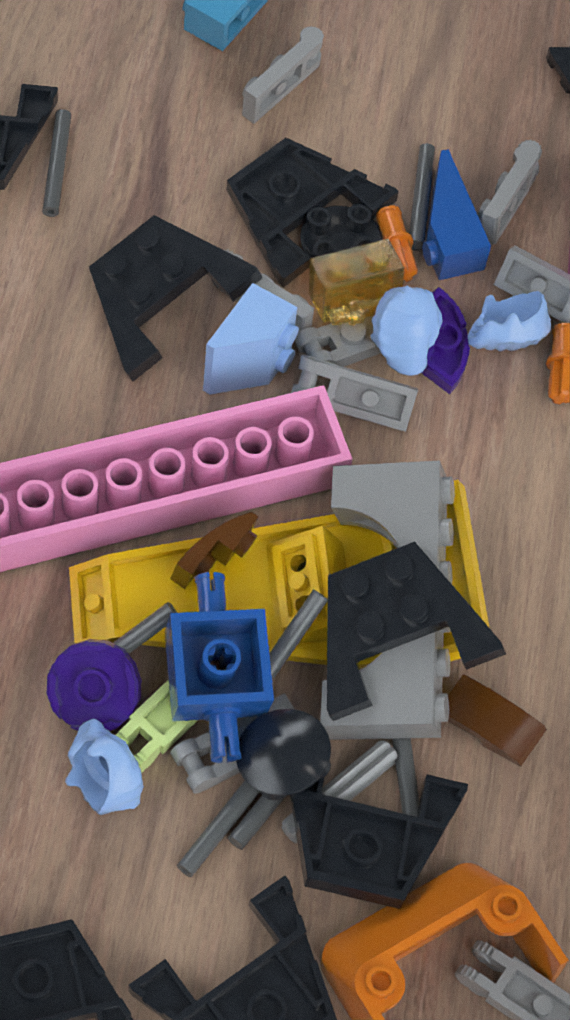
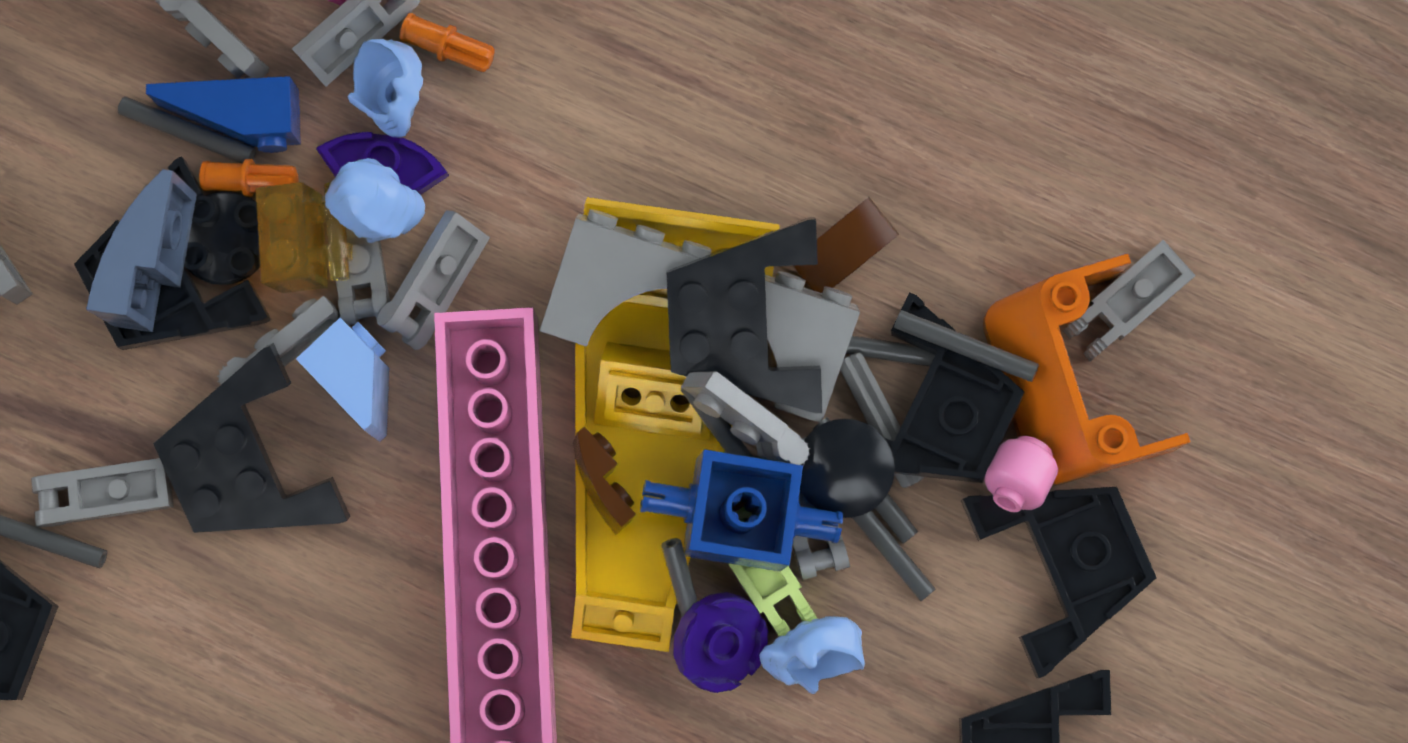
camera: 65 degrees left, 20 degrees up
(104, 196) = (102, 492): none -> light grey plate
(302, 650) = (748, 418): none -> light grey hinge
(308, 167) = (144, 254): none -> sand blue slope
(322, 913) = (1021, 474): none -> bright pink head
(431, 839) = (966, 346): none -> dark grey piece

